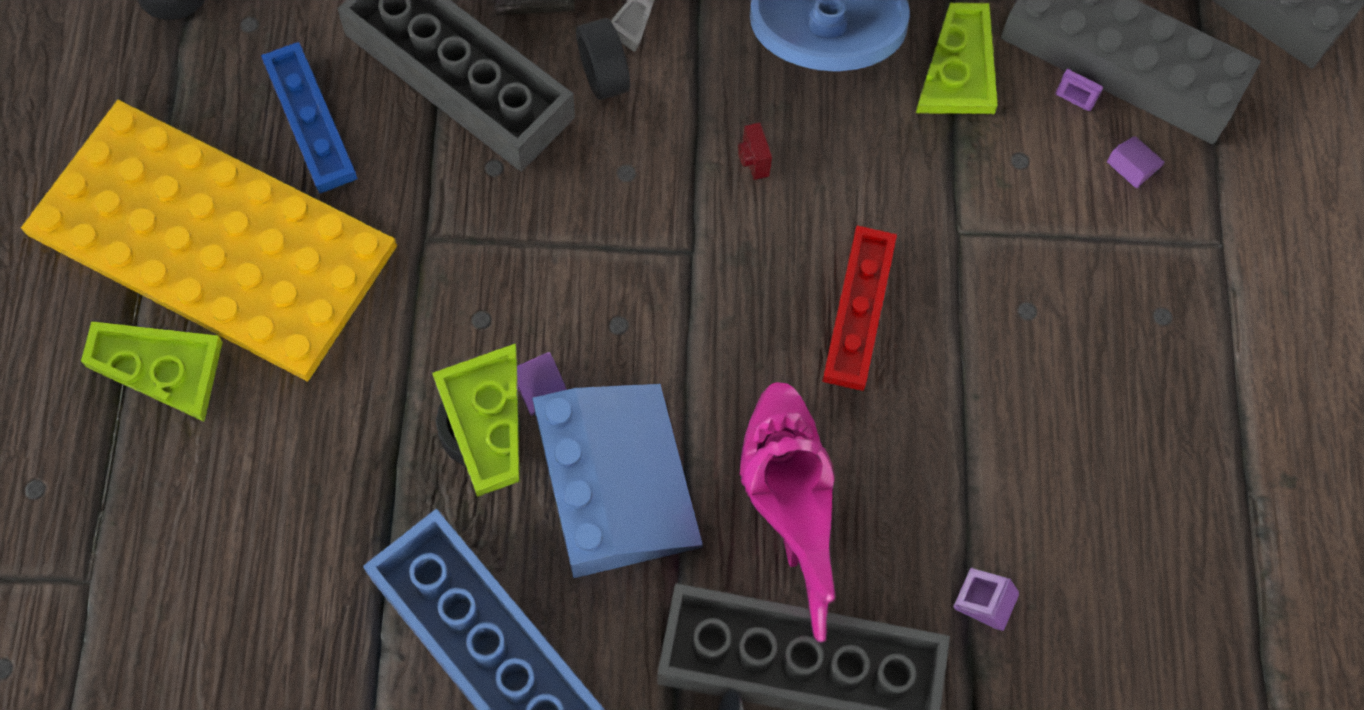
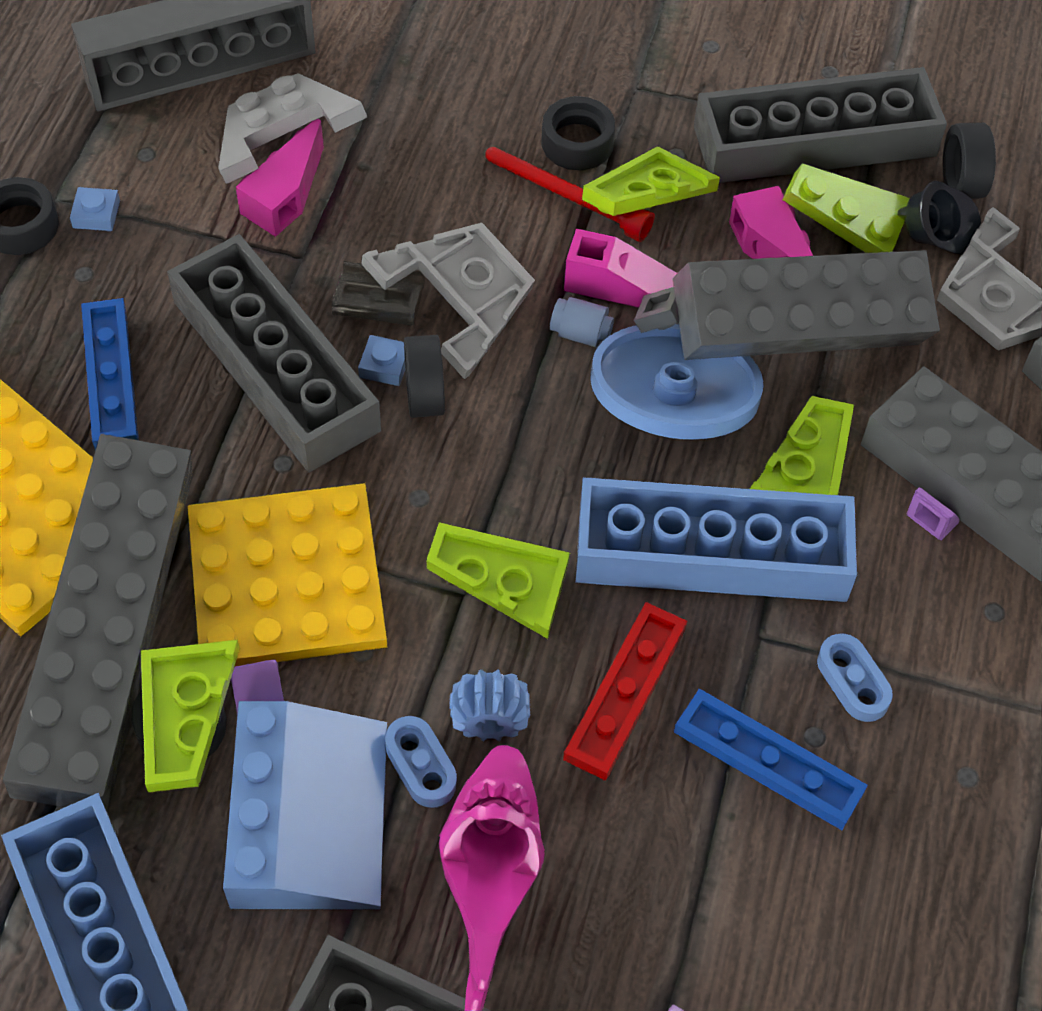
camera: 15 degrees right, 10 degrees down
(384, 353) = (99, 624): none -> dark grey brick
(531, 270) = (287, 574): none -> yellow plate
(557, 49) = (383, 361): none -> medium blue plate
(704, 412) = (421, 764): none -> medium blue plate
(723, 226) = (502, 572): none -> lime wing
(750, 349) = (490, 705): none -> medium blue gear
(755, 151) = (557, 503): dark red plate -> none
(902, 155) = (716, 539): none -> medium blue brick
(998, 340) = (770, 759): none -> blue plate
(1053, 251) = (857, 679): none -> medium blue plate
(1134, 161) = (976, 602): medium lavender slope -> none

